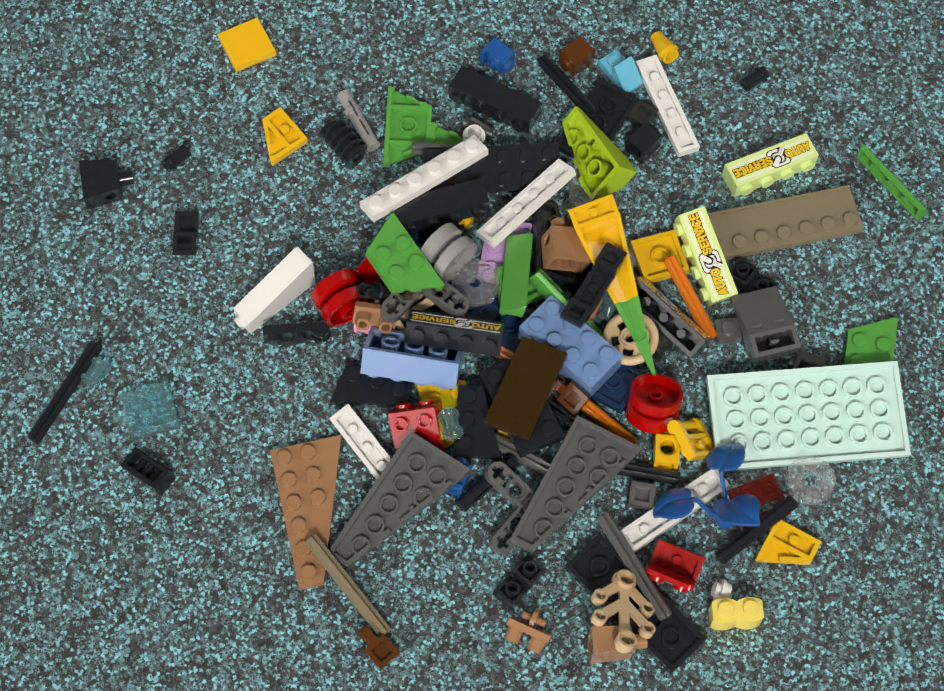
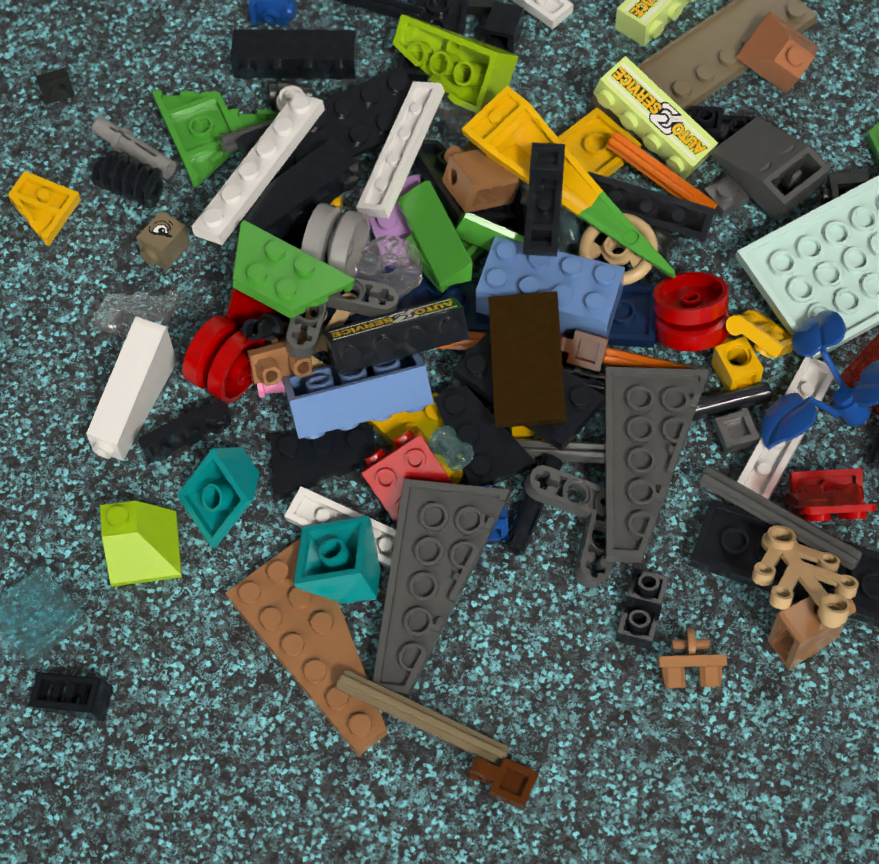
camera: 20 degrees left, 5 degrees down
(234, 393) = (140, 542): none -> lime slope
(298, 383) = (220, 491): none -> teal slope
(307, 238) = (120, 310): none -> clear wing
(328, 53) = (55, 86): none -> pearl dark grey plate
(344, 196) = (163, 241): none -> dark tan brick
(347, 463) = (339, 560): none -> teal slope
(658, 563) = (815, 496): none -> clear red plate
(819, 244) = (778, 52): none -> nougat slope

